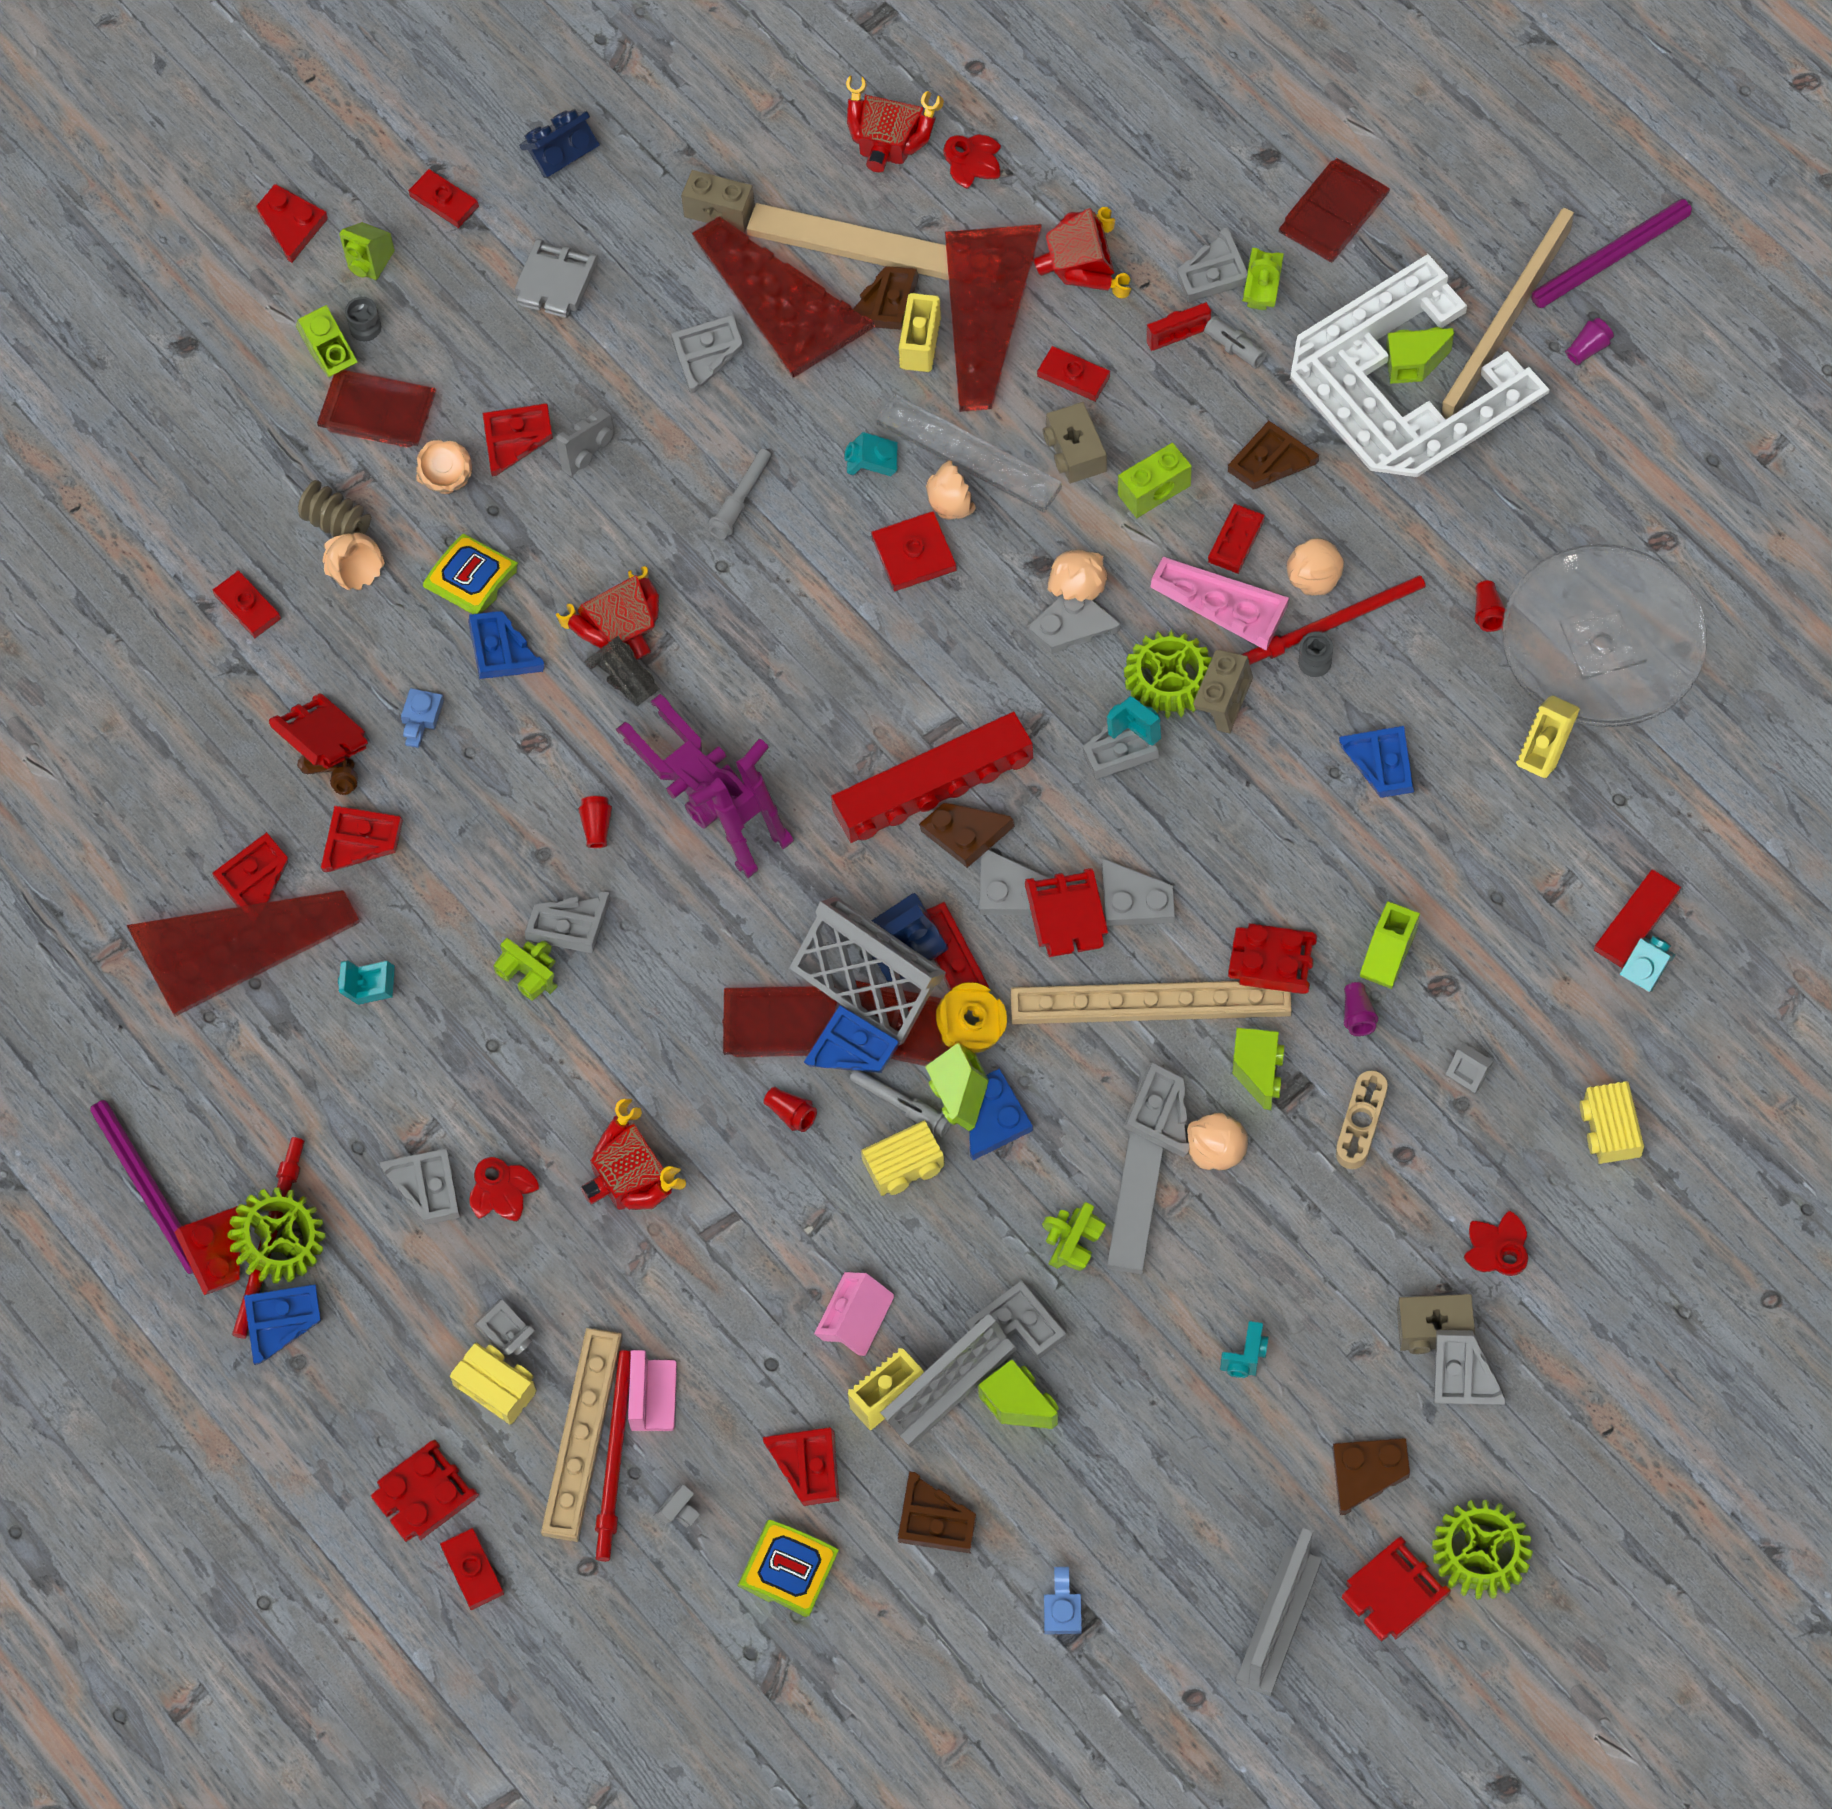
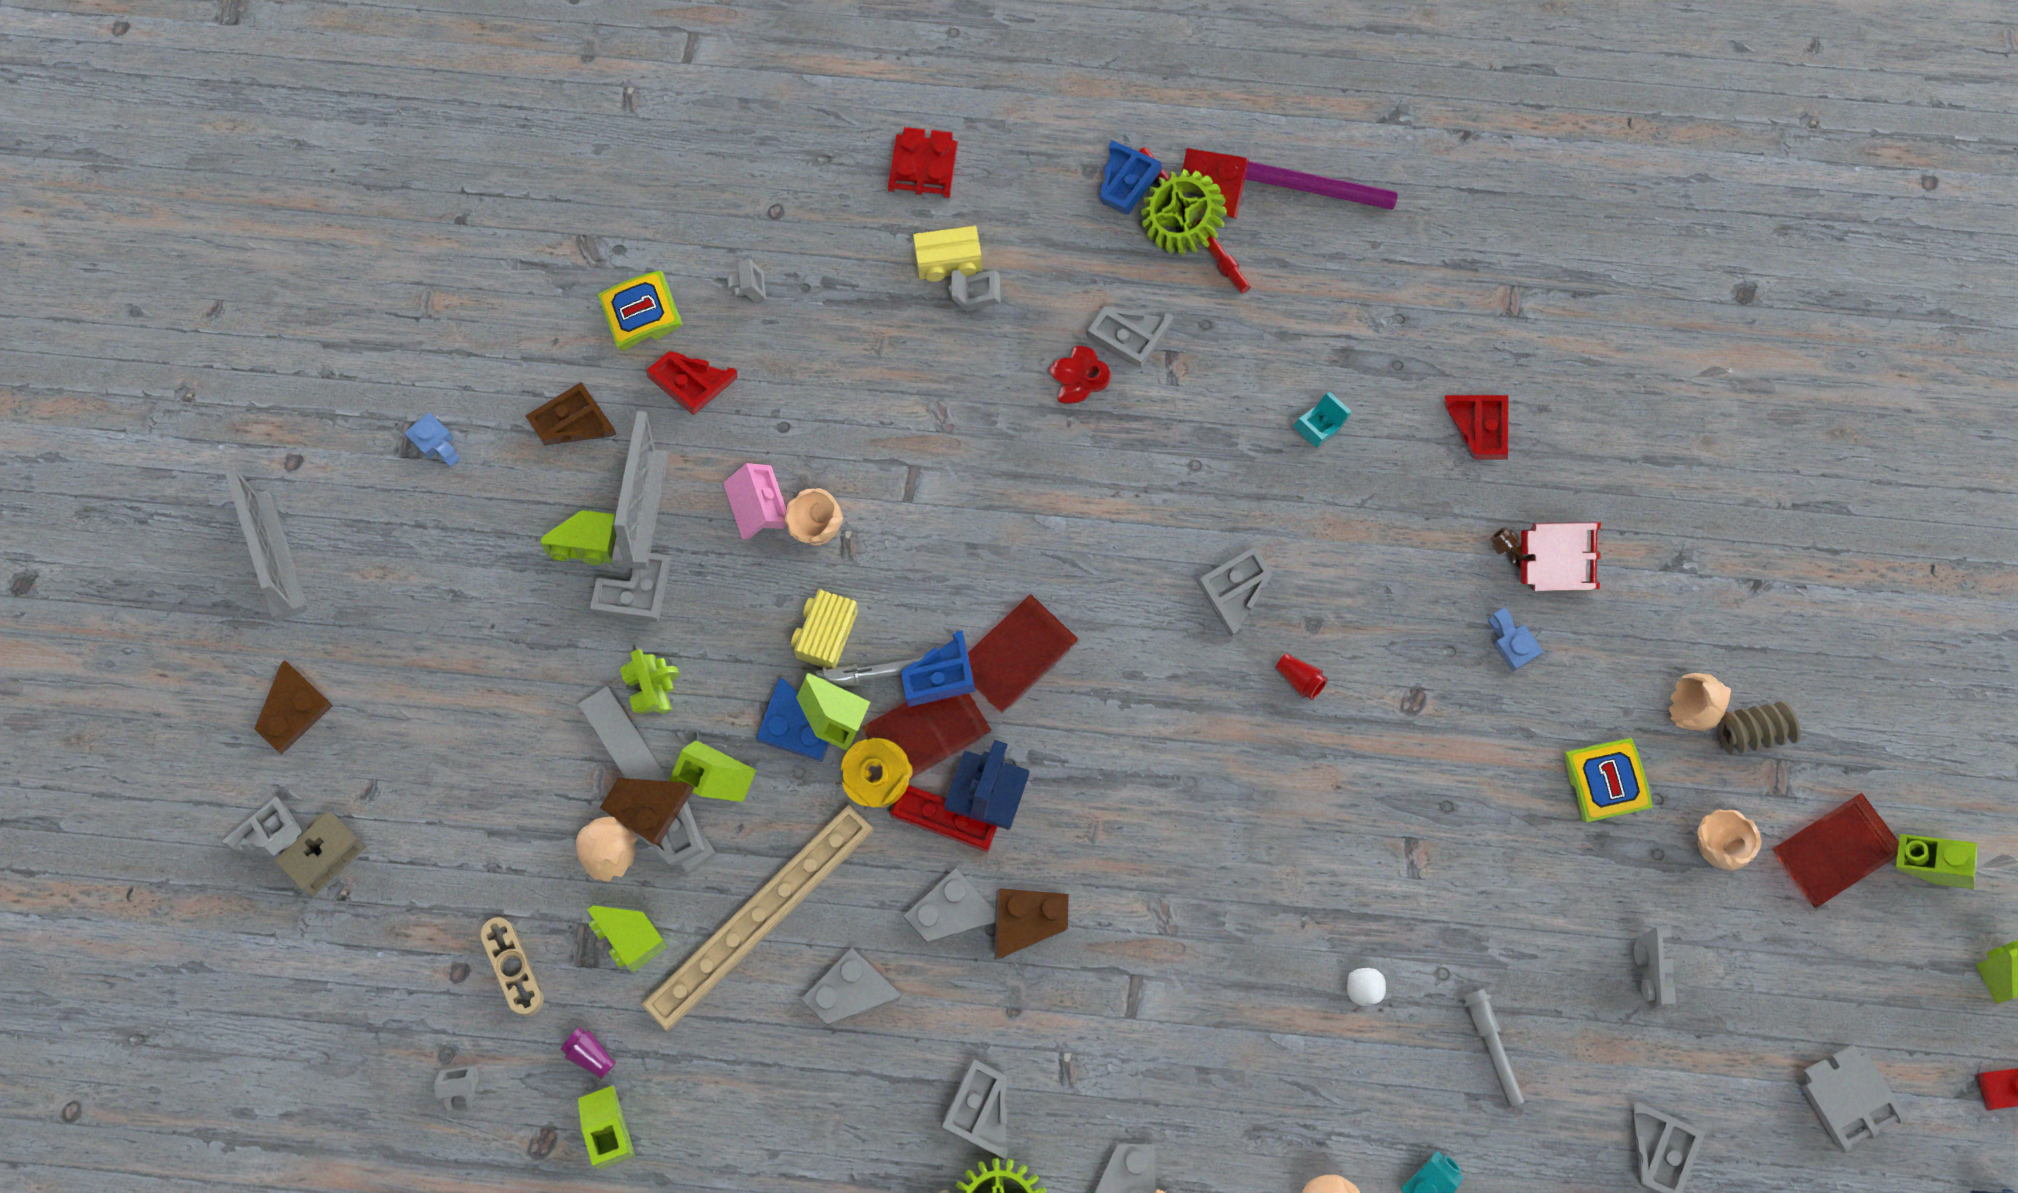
camera: 130 degrees right, 5 degrees up
(220, 949) = (1439, 363): clear red wing -> none
(246, 604) = (1730, 609): red plate -> none
(359, 837) = (1447, 514): red wing -> none
(363, 319) = (1946, 906): dark grey wheel -> none
(471, 1569) = (844, 147): red plate -> none
(500, 648) = (1520, 743): blue wing -> none
(515, 434) = (1714, 926): red wing -> none
(537, 976) = (1227, 533): lime hips -> none
(581, 1435) = (861, 279): tan tile -> none
(606, 1521) = (788, 241): red bar -> none
(621, 611) = (1463, 845): red torso -> none
(624, 671) = (1420, 804): clear smoke wing -> none
(628, 1167) = (1005, 455): red torso -> none
(651, 1393) = (841, 336): bright pink panel -> none
(710, 789) = (1238, 765): magenta piece -> none
(783, 594) = (1366, 986): none -> white piece
(791, 1109) = (940, 596): red cone -> none
(827, 1247) = (813, 516): none -> light nougat hair
(876, 943) = (991, 741): light grey fence -> none
(883, 1387) = (678, 462): light yellow brick -> none
(913, 551) = (1312, 1129): red plate -> none
(932, 777) = (1094, 941): red brick -> none
(1067, 913) = (882, 920): red plate -> none
(1092, 1124) = (713, 773): none -> lime slope
(1138, 718) = (973, 1136): teal bracket -> none
(1162, 1129) = (647, 805): none -> reddish brown wing
(1255, 1347) = (439, 702): teal bracket -> none
(1271, 958) = (693, 1034): red plate -> none
(1393, 1591) = (200, 638): red plate -> none
(1474, 1535) = (153, 700): lime gear -> none
(1495, 1243) = (327, 962): red plate -> none
(1612, 1122) = (302, 1139): light yellow brick -> none

